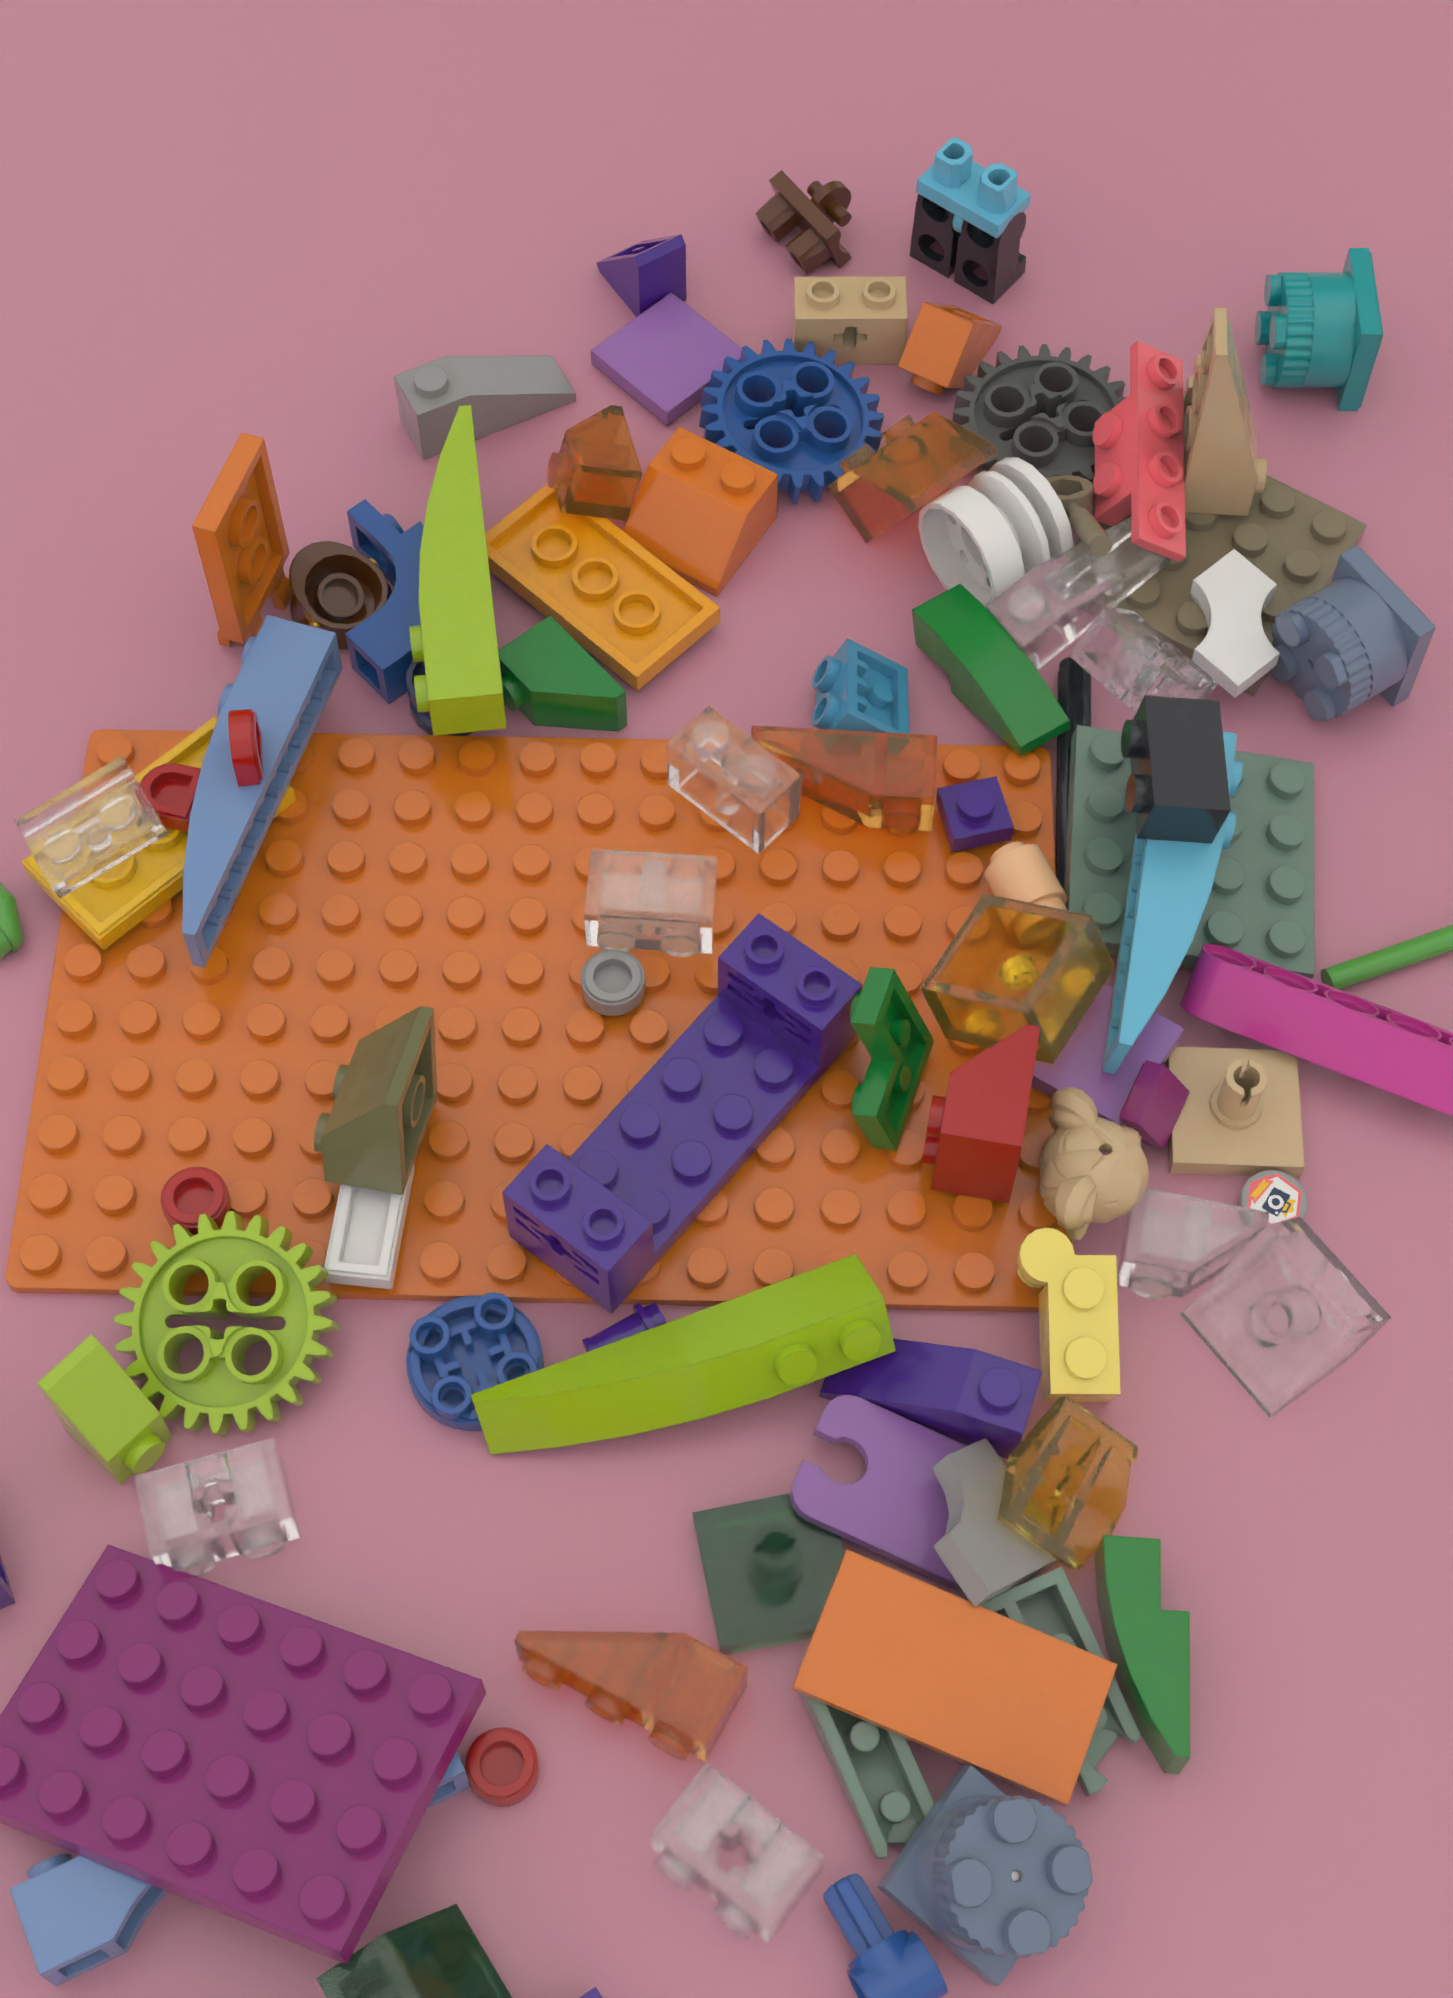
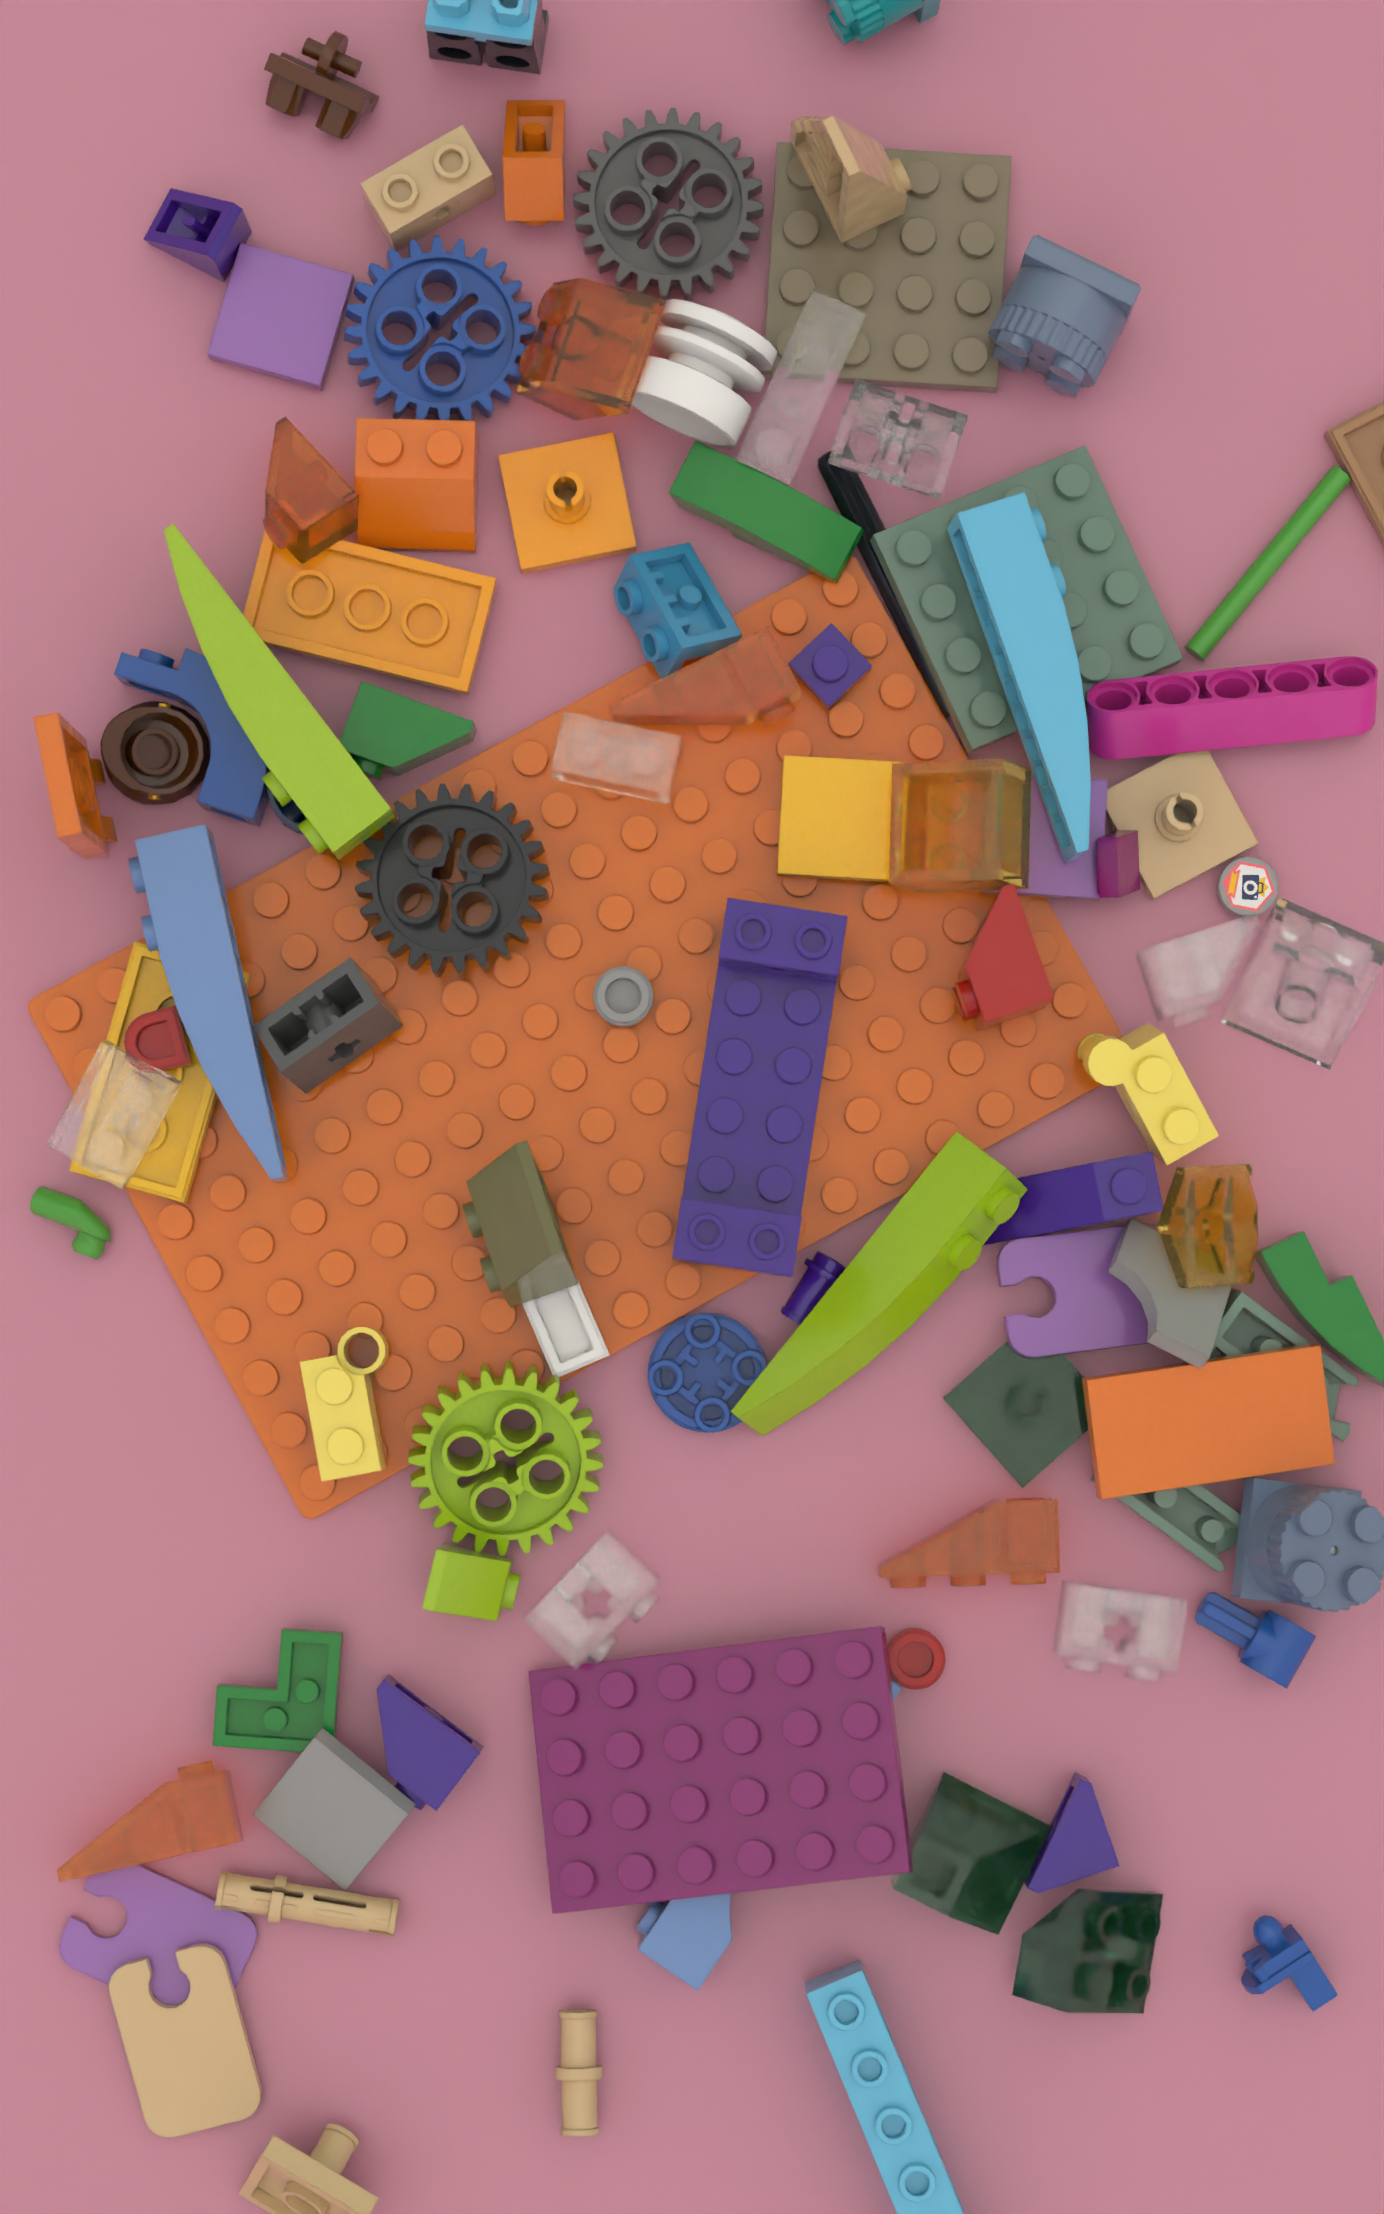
camera: 25 degrees left, 25 degrees up
(109, 1185) = (345, 1410): none -> light yellow hinge
(195, 1193) = (413, 1375): red tile -> none
(246, 746) = (214, 988): red tile -> none
(328, 853) = (327, 1025): none -> dark grey brick
(496, 387) = (141, 464): light grey slope -> none
(521, 804) = (505, 886): none -> black gear
(651, 901) = (616, 913): clear brick -> none
(818, 592) = (567, 503): none -> light orange tile
(898, 1052) = (887, 934): green plate -> none
(900, 926) = (835, 818): none -> yellow tile
(1024, 875) = (915, 721): light nougat brick -> none
(1076, 1178) = (1085, 965): tan hair -> none
(1078, 500) = (756, 309): dark tan piece -> none
(1143, 455) = (790, 219): coral bracket -> none
(1176, 769) = (999, 575): black brick -> none
(1232, 600) = (964, 368): white tile -> none

